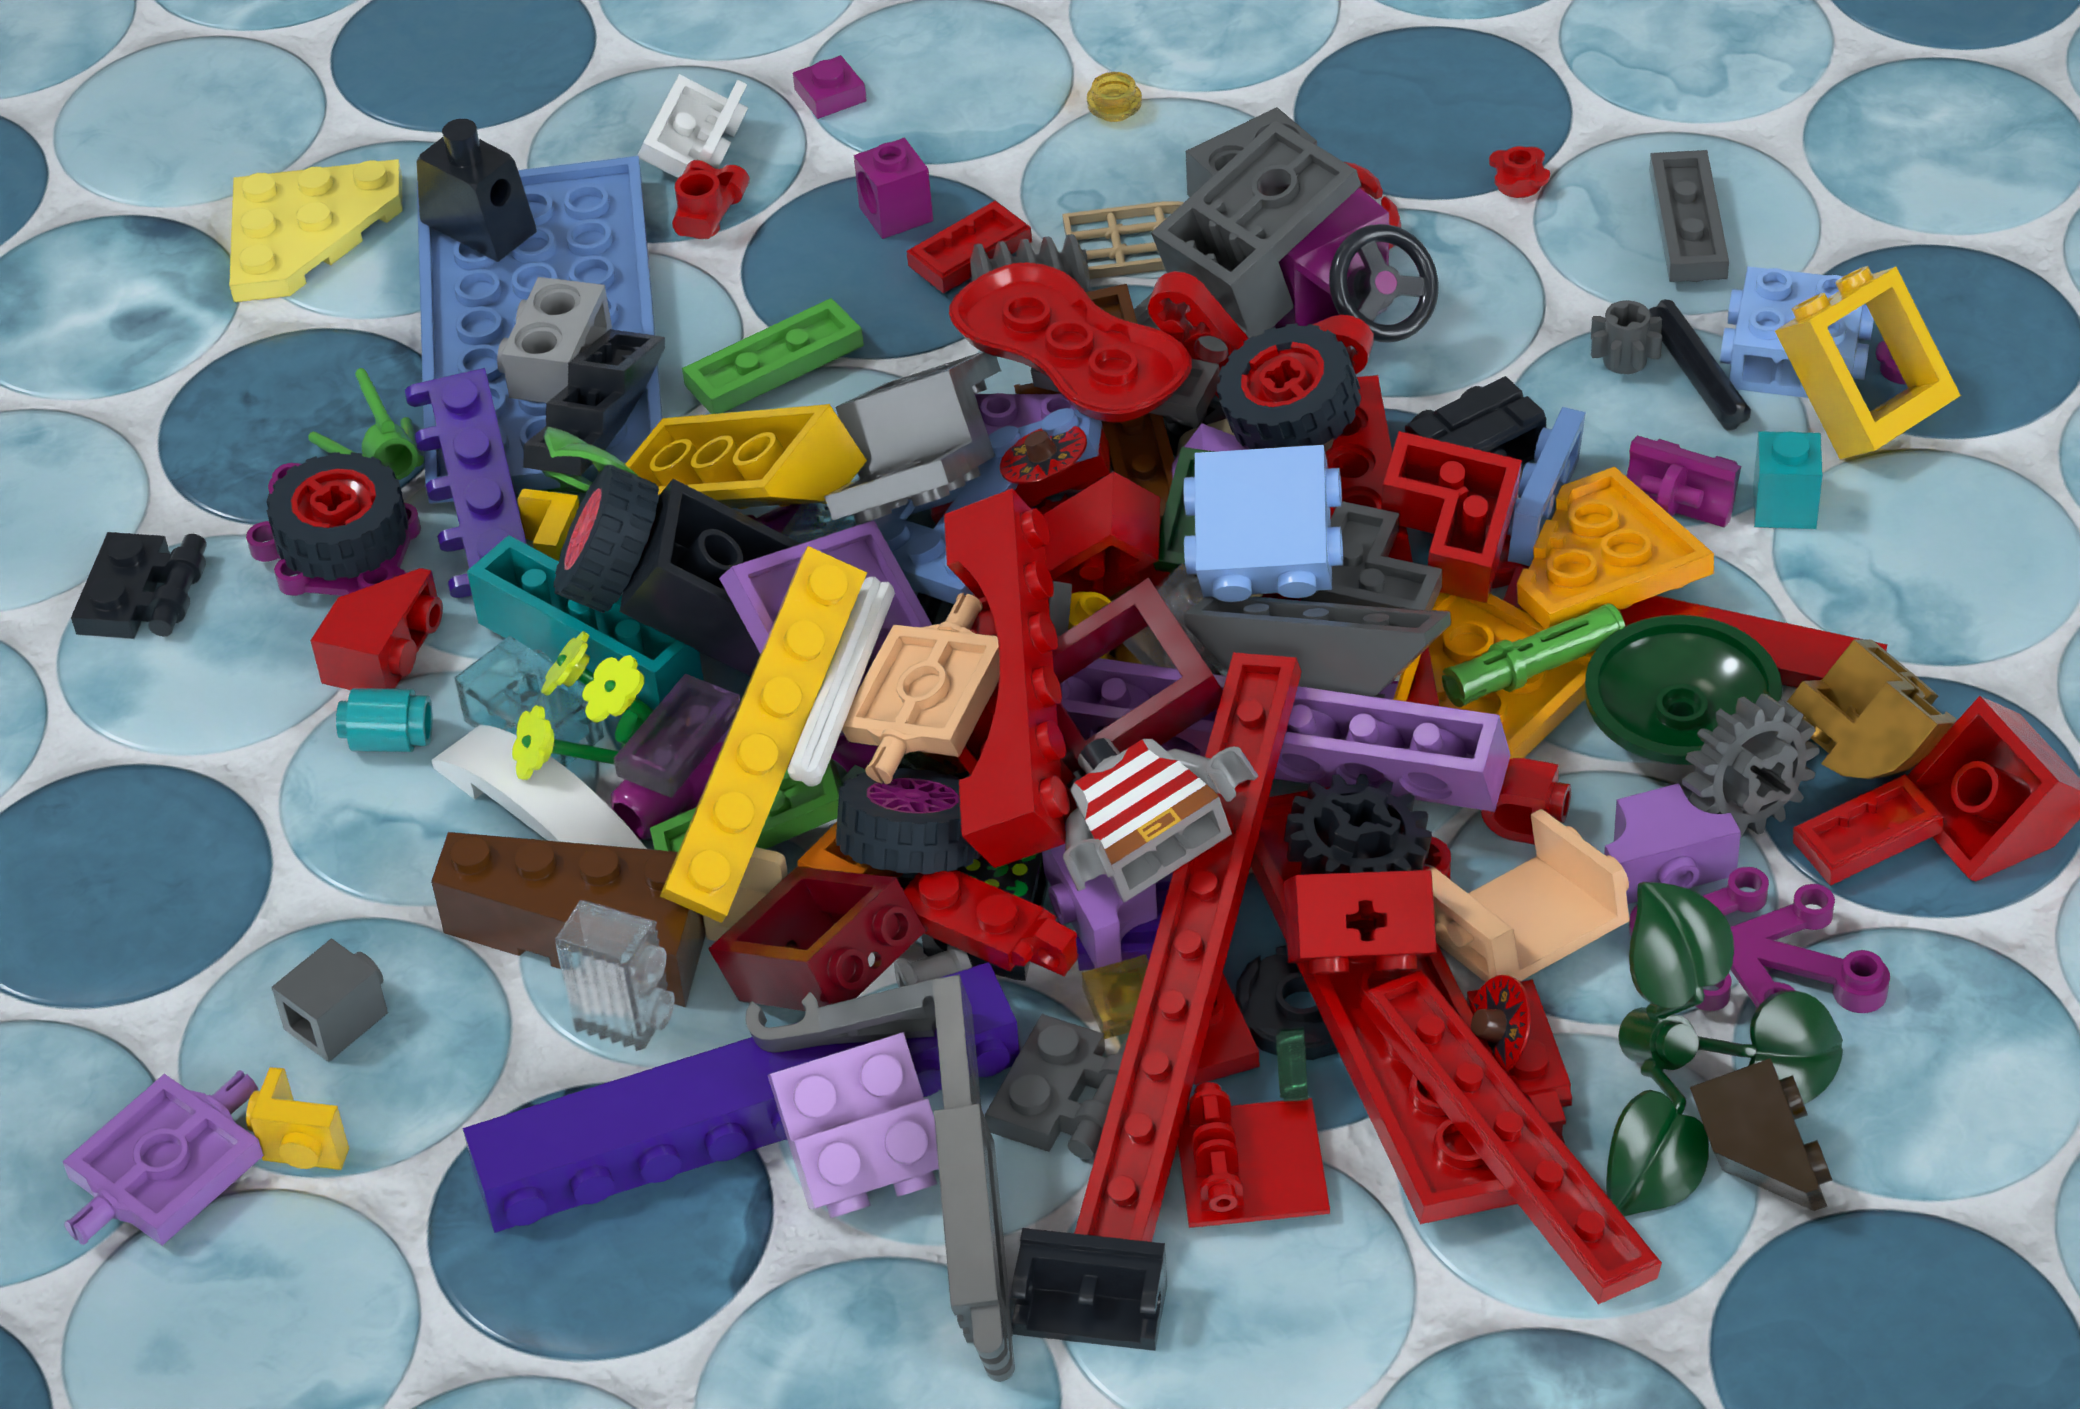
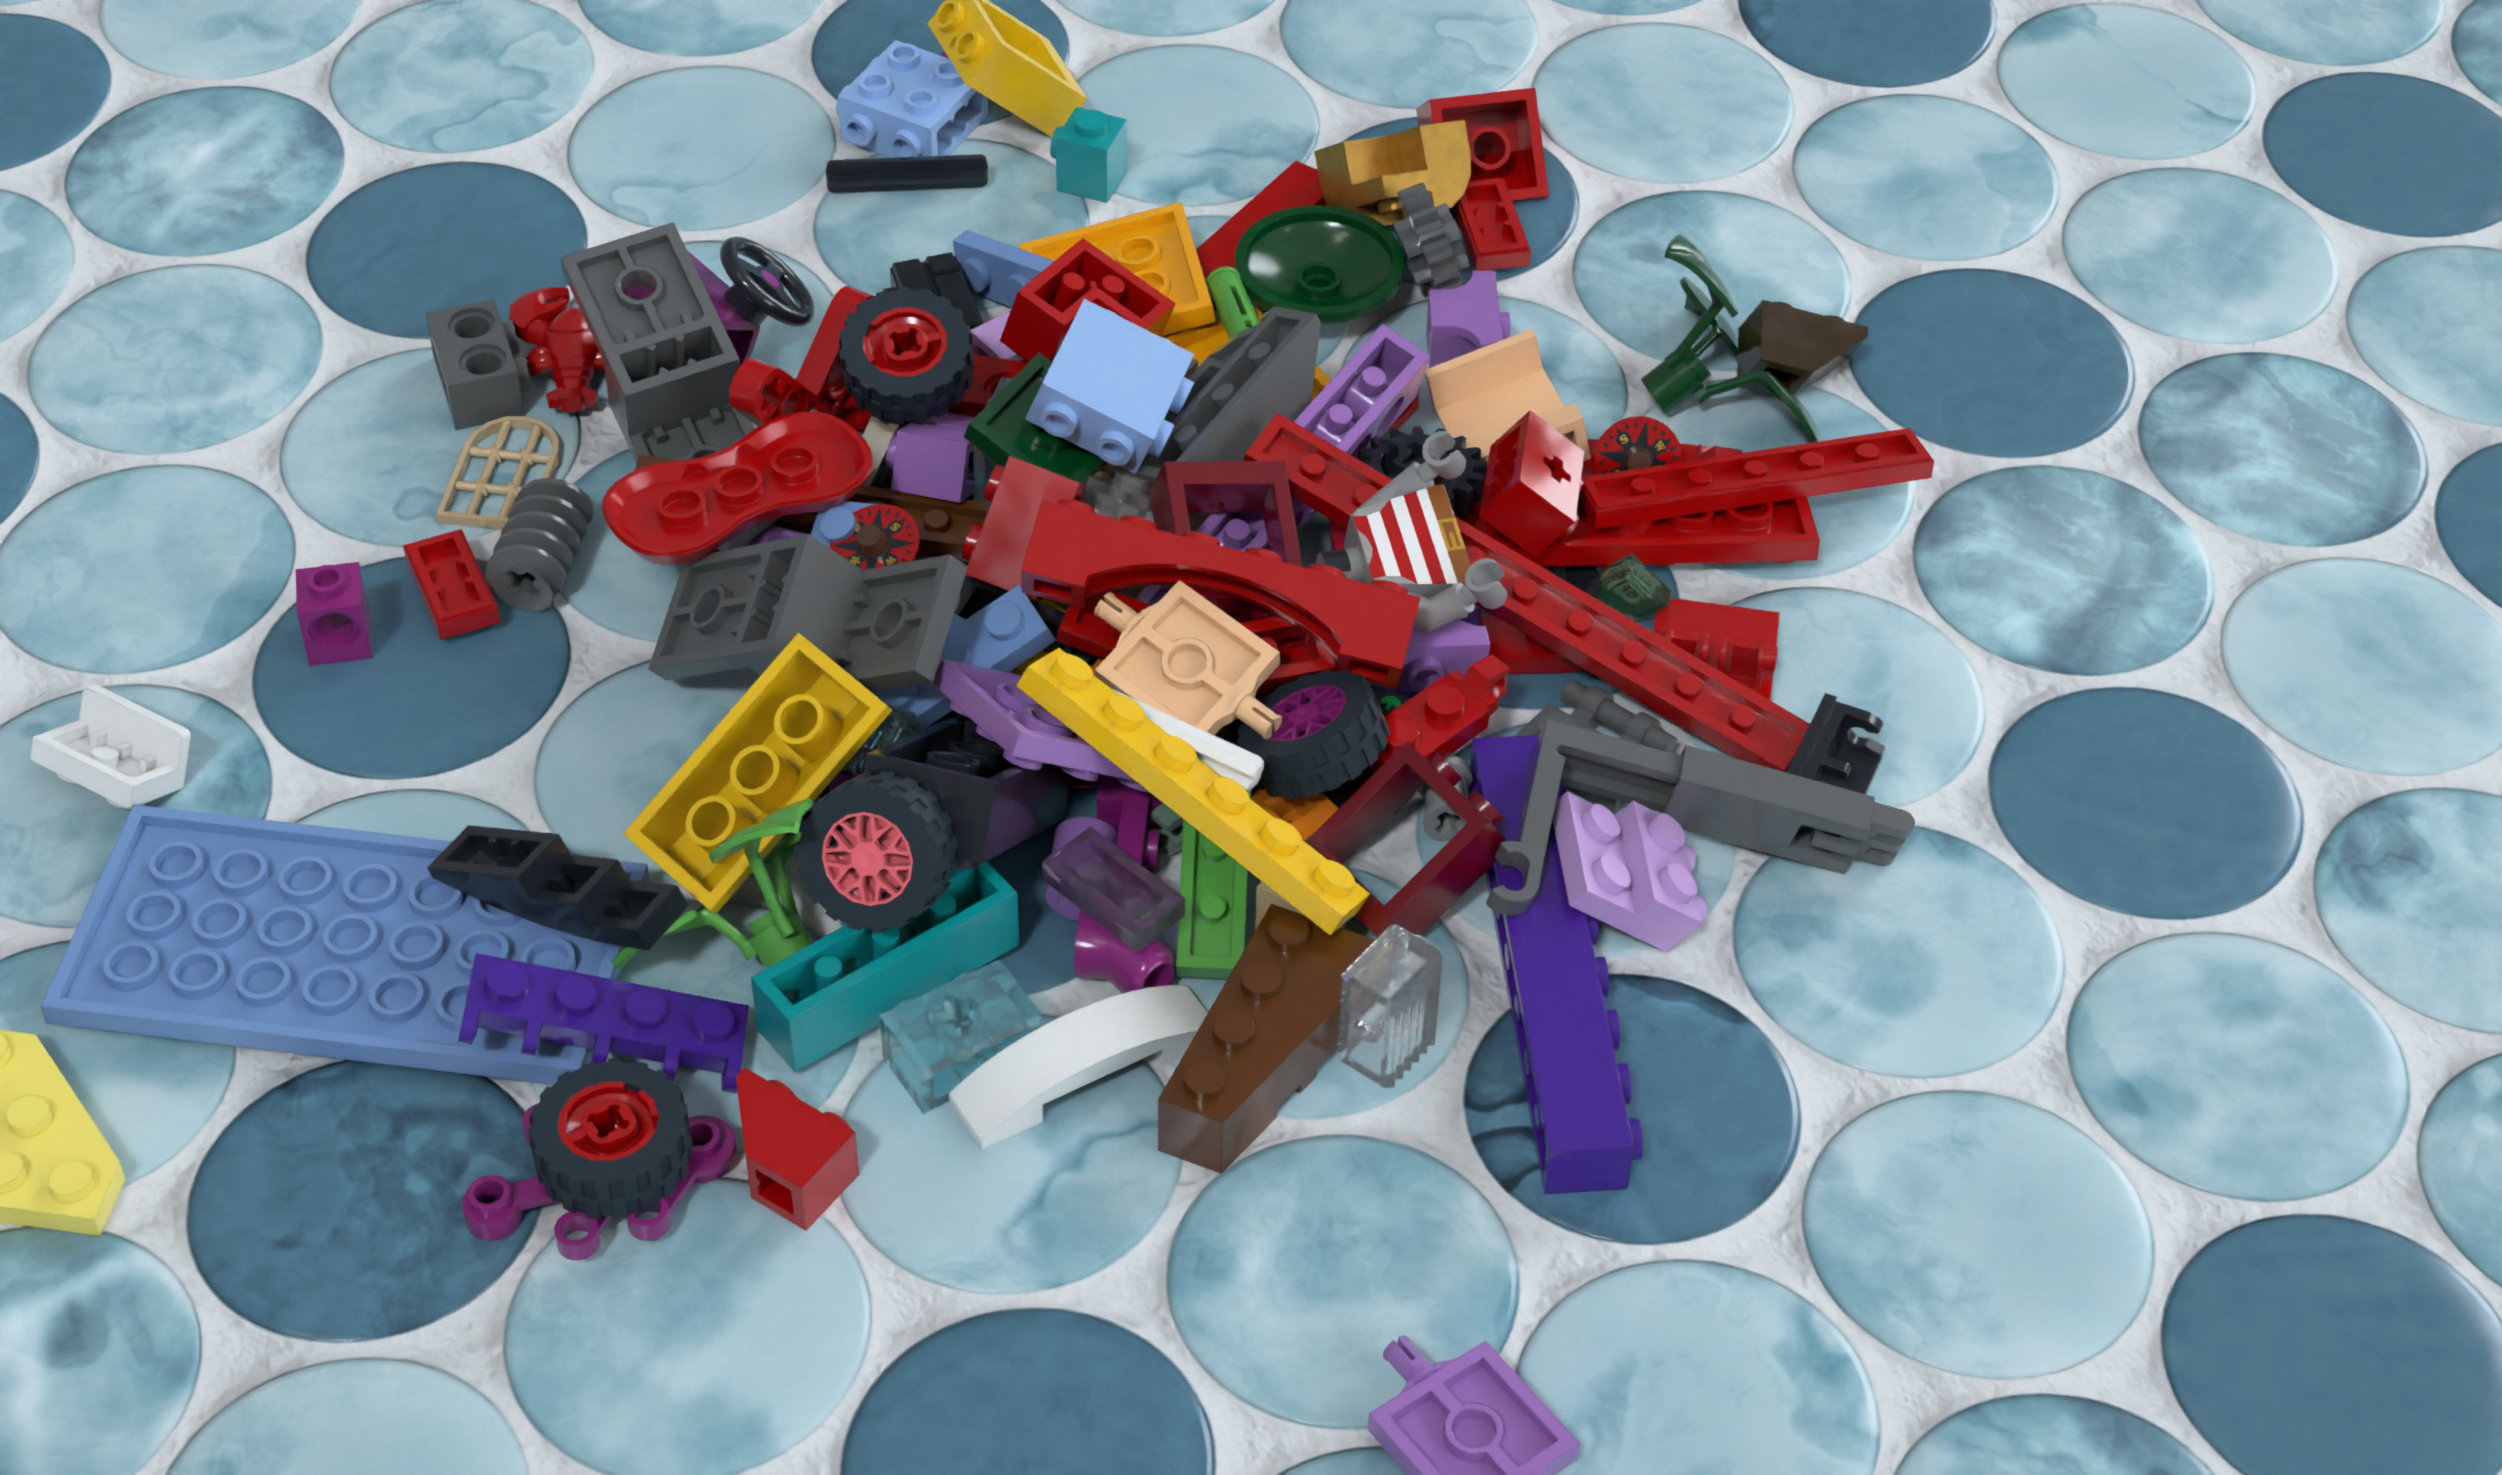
camera: 80 degrees left, 0 degrees up
(124, 581) = (564, 1394): black plate -> none
(293, 1130) = (1487, 1307): yellow bracket -> none
(330, 999) = (1310, 1259): dark grey brick -> none
(384, 440) = (512, 1082): bright green plant -> none
(385, 720) = (921, 1161): teal brick -> none
(473, 192) = (148, 927): black torso -> none
(547, 518) = (709, 969): yellow bracket -> none
(548, 333) = (439, 901): light grey brick -> none
(607, 690) = (1059, 919): neon yellow plant -> none
(705, 196) = (236, 765): red plate -> none
(772, 357) = (529, 759): bright green plate -> none
(829, 86) = (103, 645): magenta plate -> none
(1114, 97) = (288, 437): clear yellow plate -> none
(1115, 993) = (1524, 681): clear yellow plate -> none
(1519, 171) = (585, 209): red plate -> none
(1626, 337) = (859, 197): dark grey gear -> none
(1684, 480) = (1056, 208): magenta hips -> none
(1688, 216) = (719, 127): dark grey plate -> none
(1857, 980) = (1634, 277): magenta plant -> none

